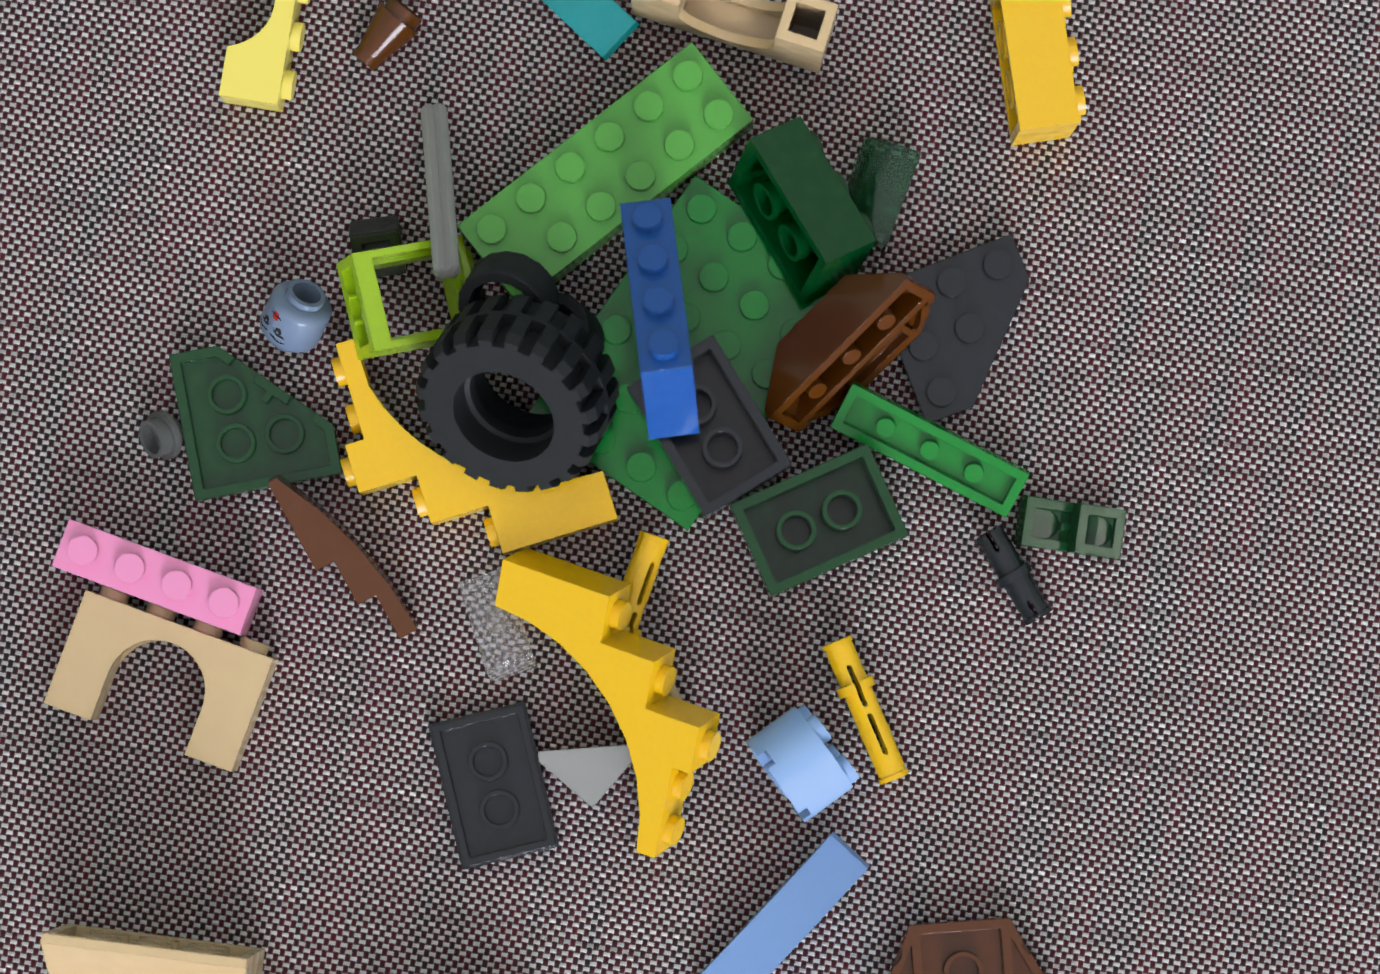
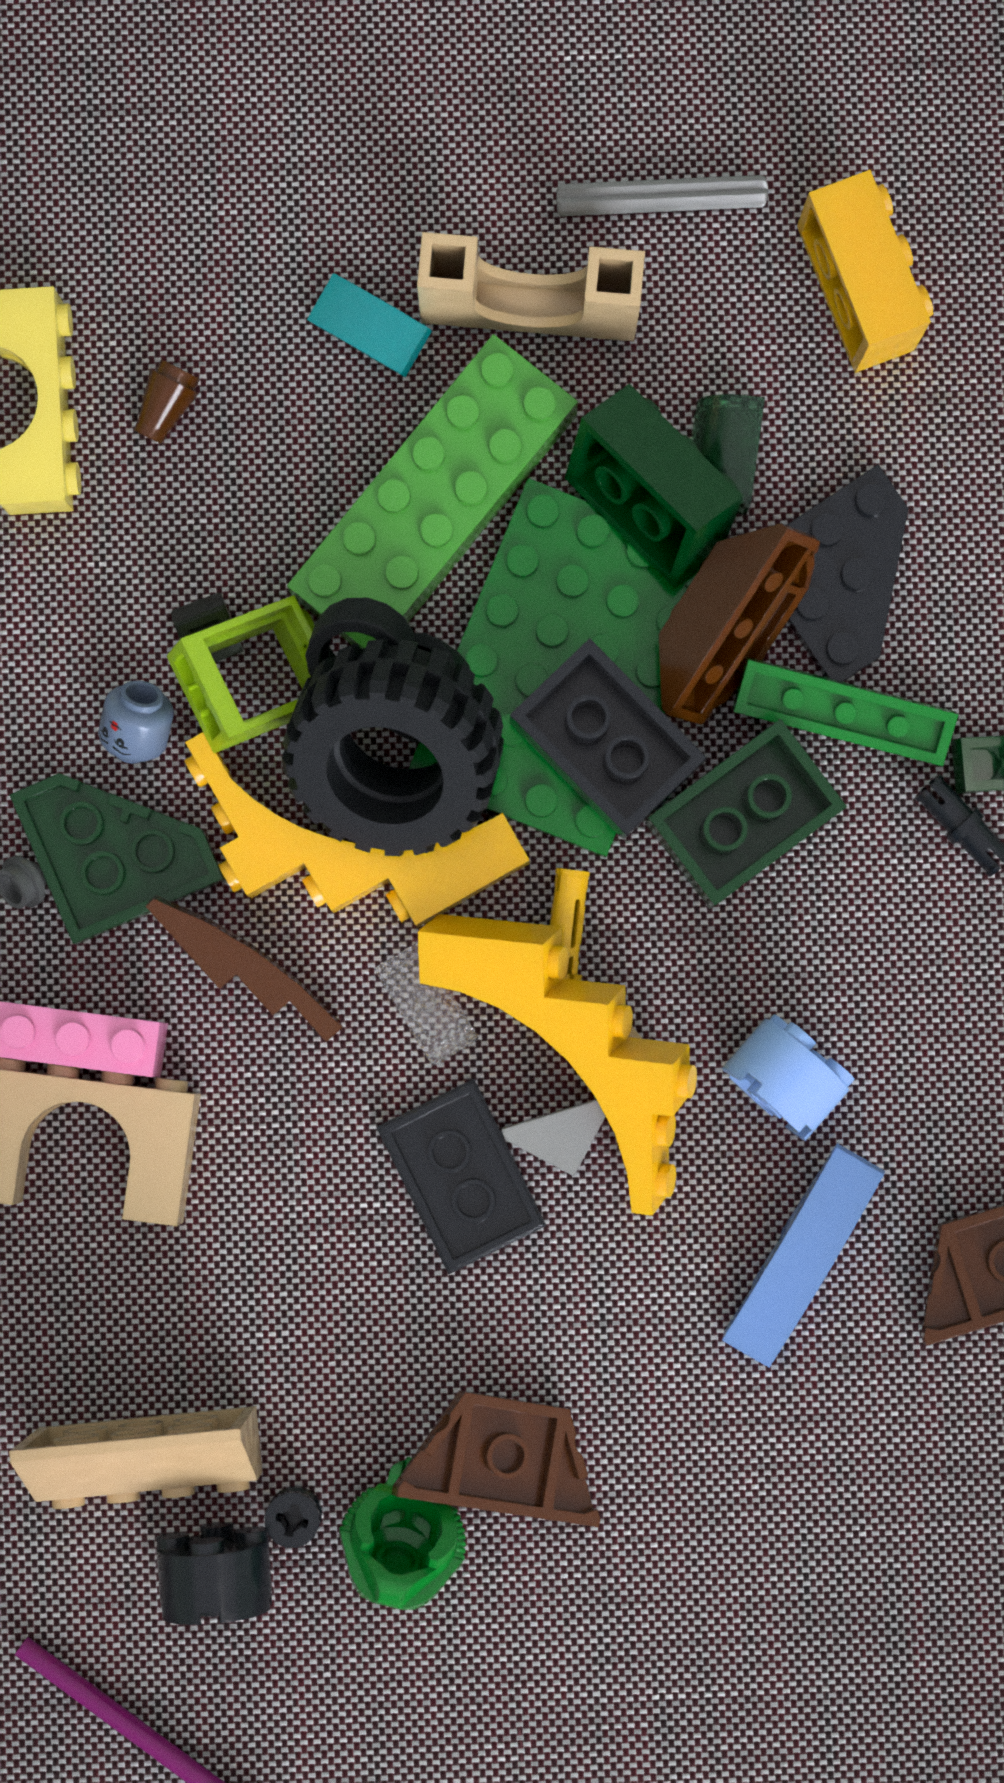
camera: 10 degrees left, 0 degrees up
(440, 191) = (260, 554): light grey axle -> none
(660, 318) = (533, 631): blue arch -> none
(843, 654) = (839, 1004): yellow pin -> none

